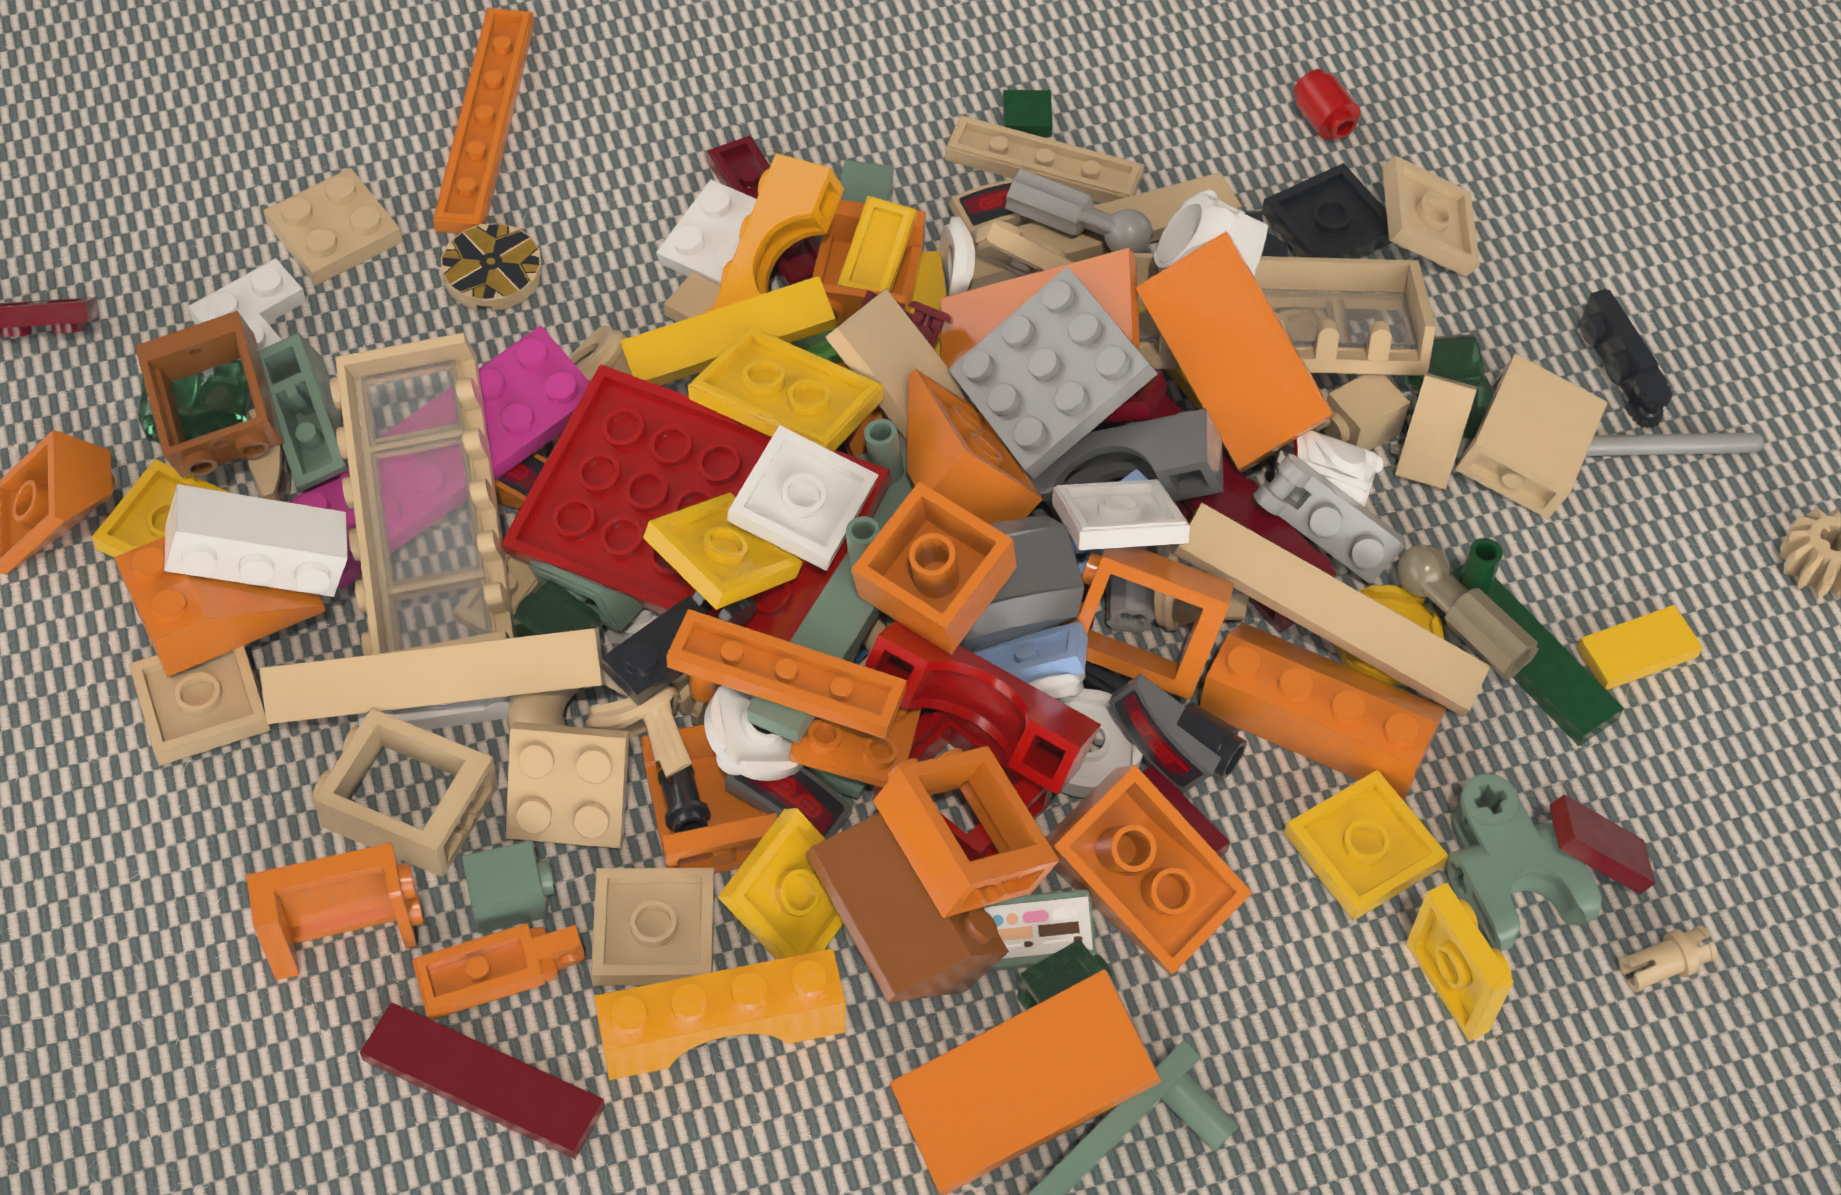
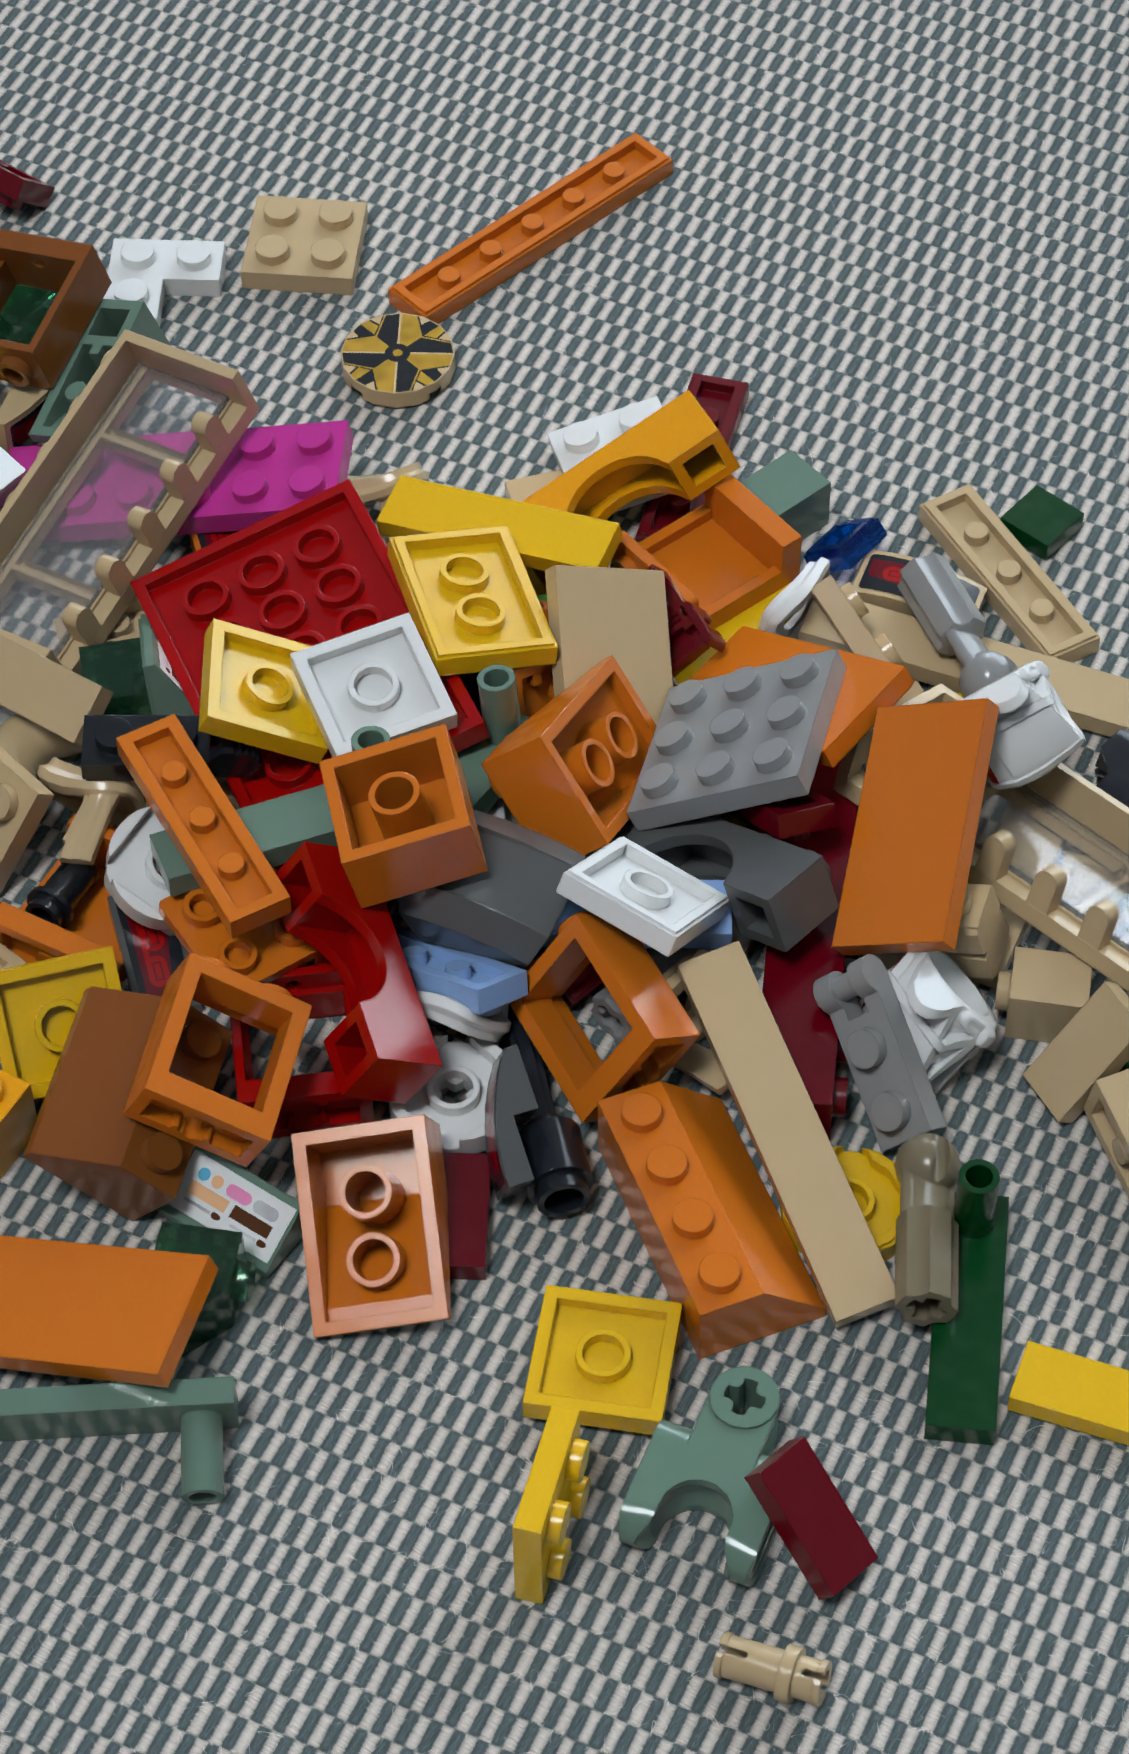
camera: 45 degrees right, 5 degrees down
(878, 245) = (720, 541): yellow tile -> none
(937, 198) = (847, 543): none -> clear blue tile

